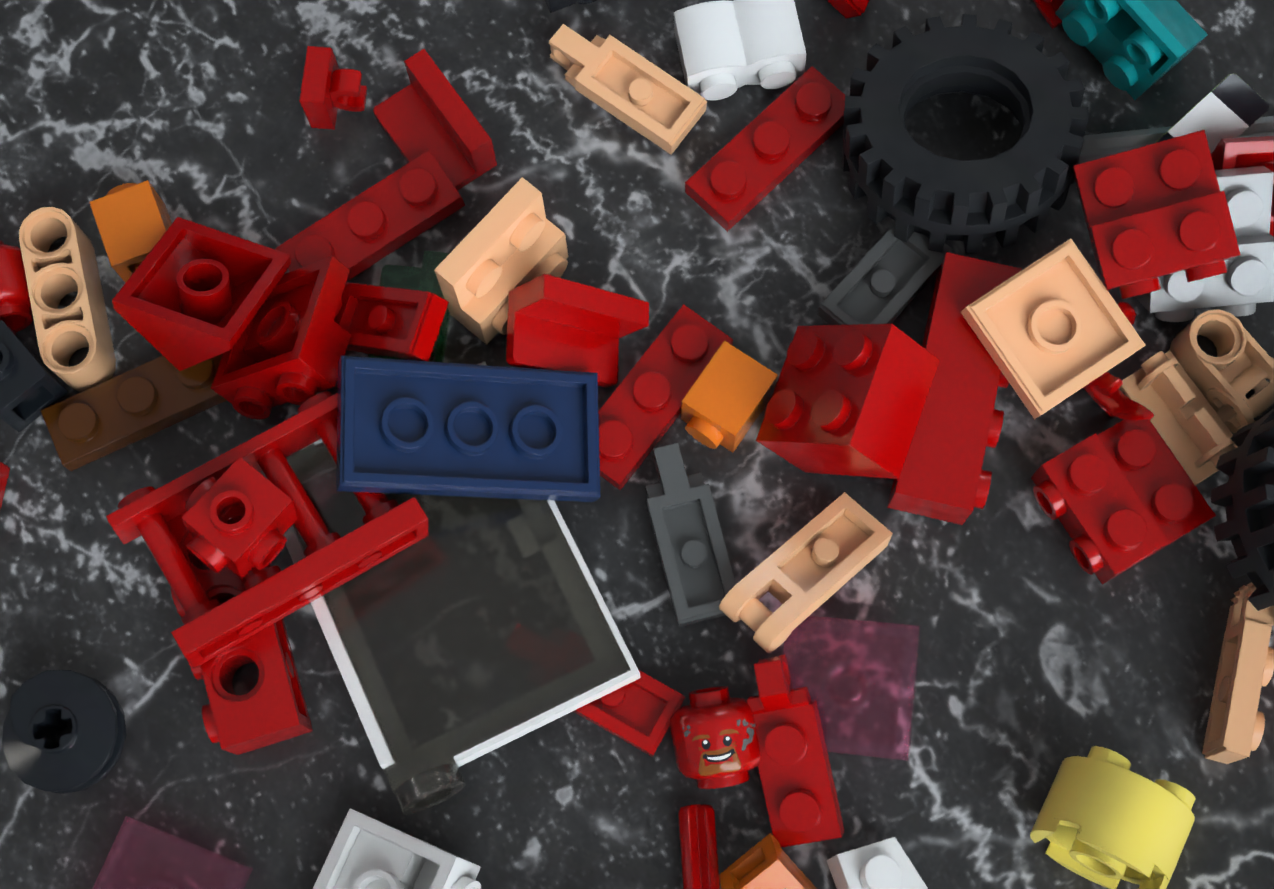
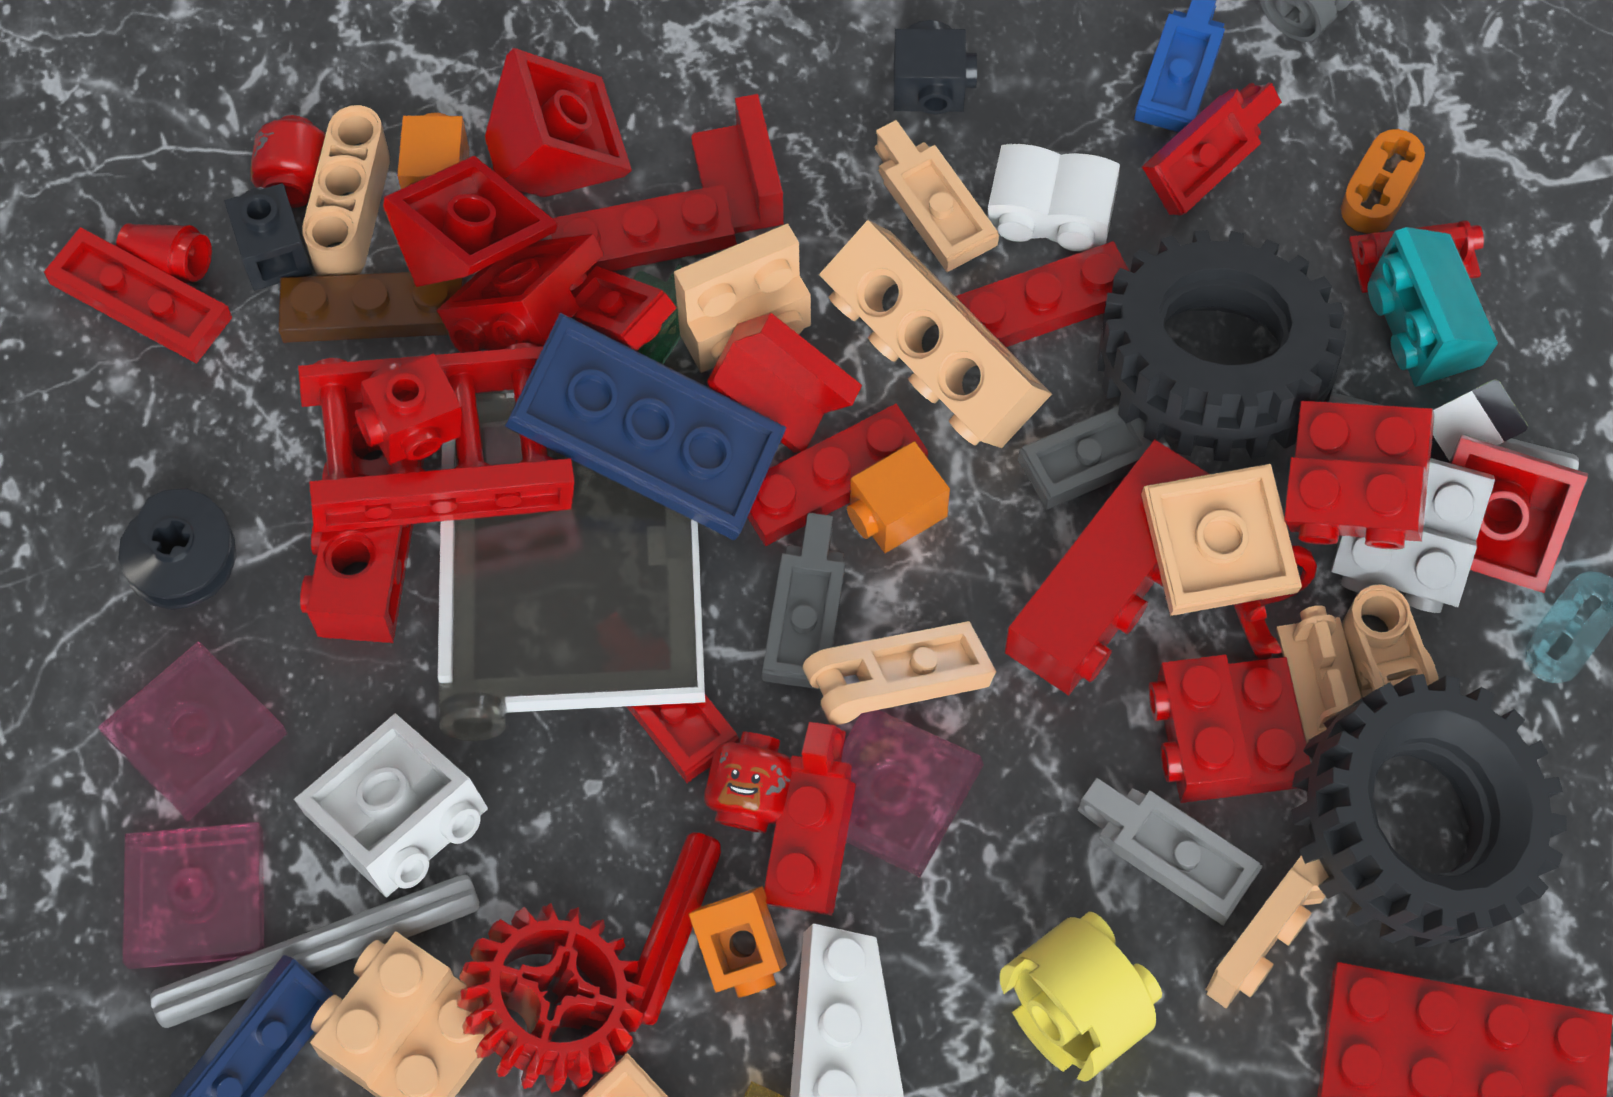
camera: 20 degrees right, 10 degrees down
(238, 155) = (553, 128): none -> red slope
(329, 88) = (658, 100): red tile -> none
(598, 202) = (1006, 389): none -> light nougat brick
(848, 400) = (1002, 532): red brick -> none
(1122, 637) = (1171, 848): none -> light grey hinge

